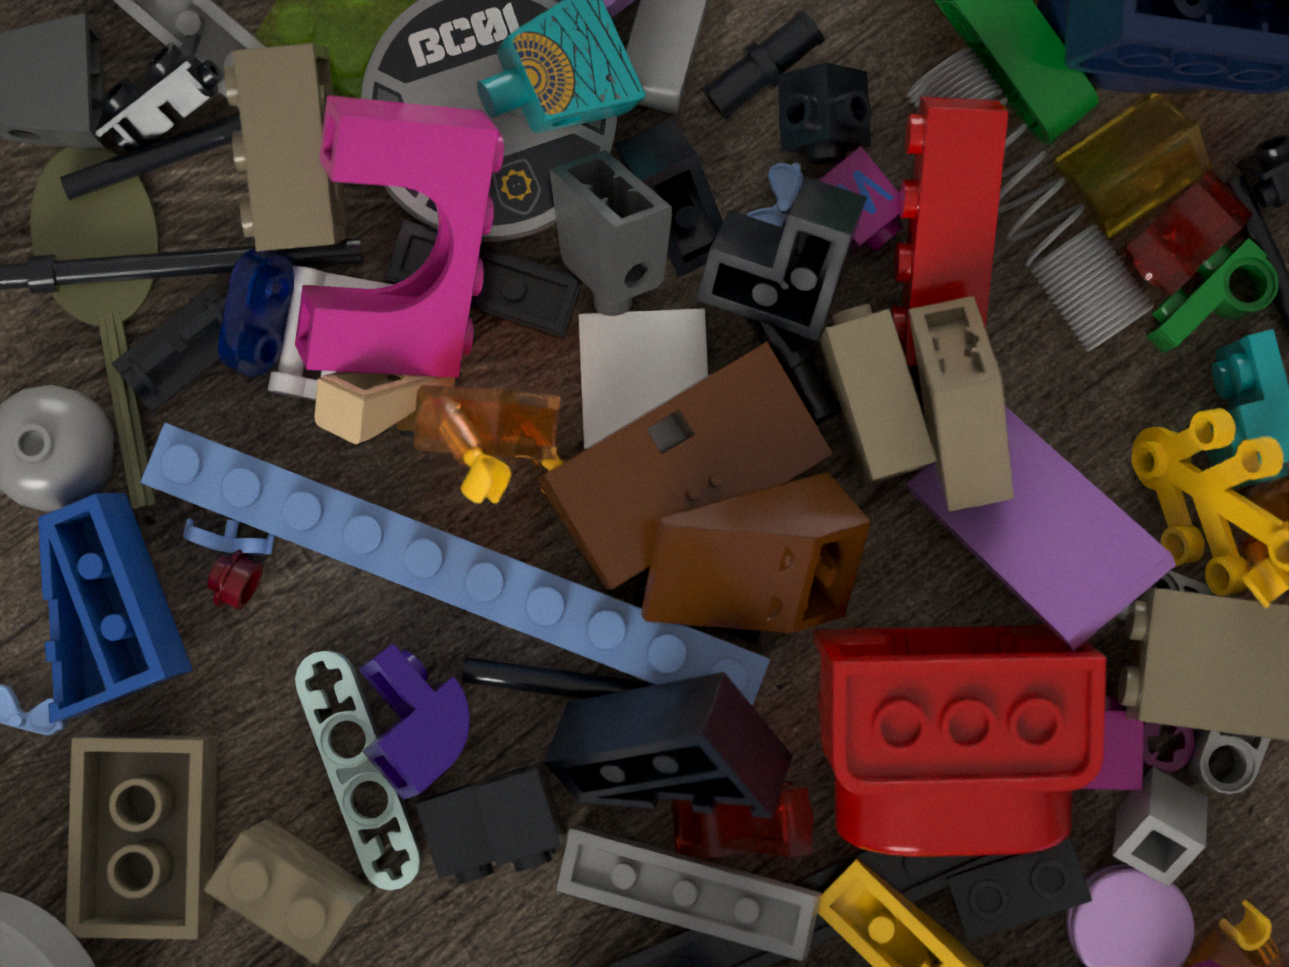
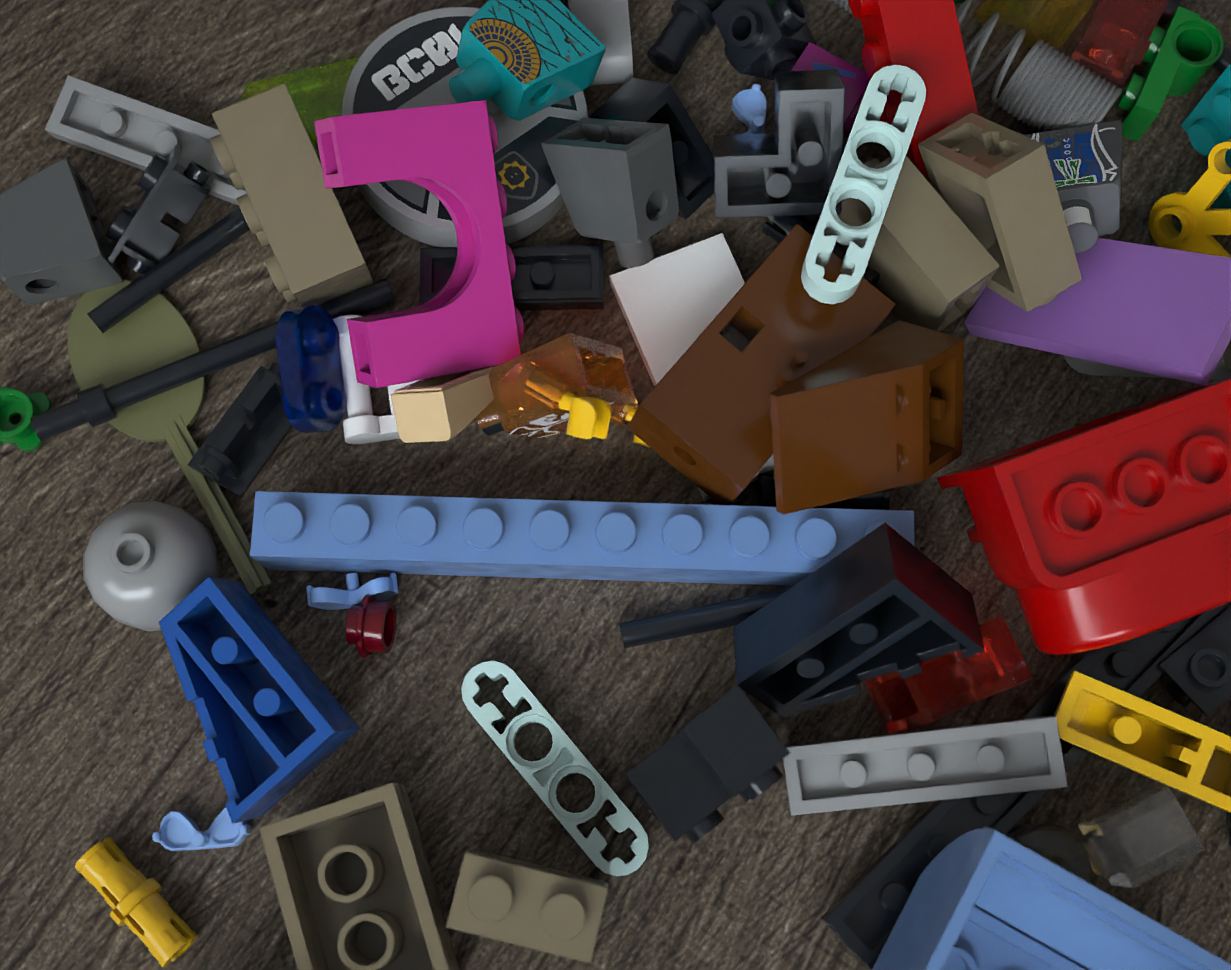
camera: 20 degrees left, 10 degrees down
(429, 726) = (609, 693): dark purple brick -> none
(829, 330) = (863, 183): none -> light aqua beam
(1057, 387) = (1087, 178): none -> dark grey torso

